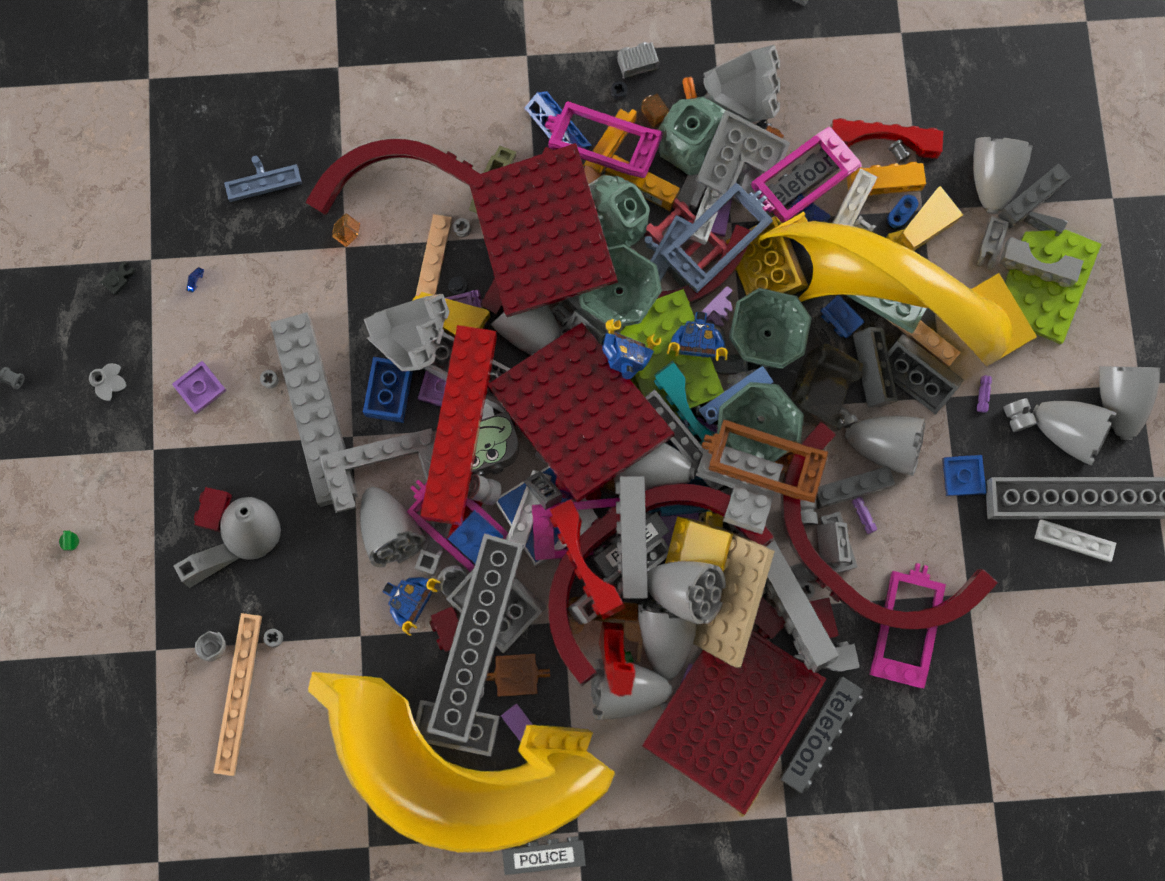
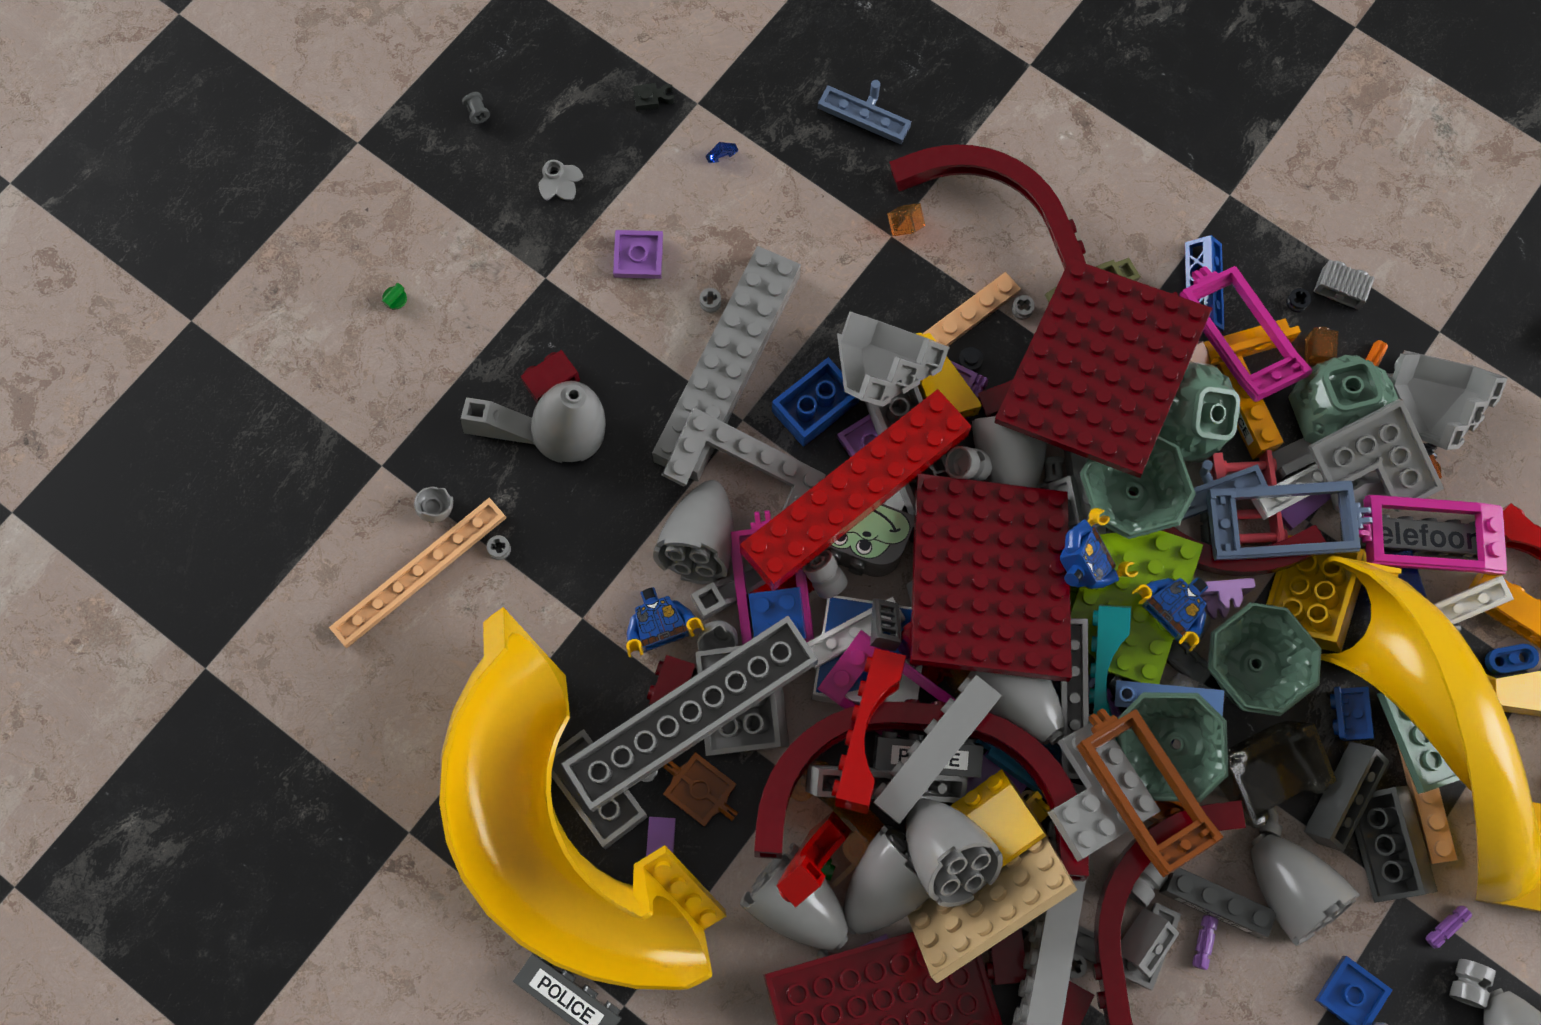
camera: 40 degrees right, 5 degrees down
(511, 353) = (968, 463): none -> light grey wheel

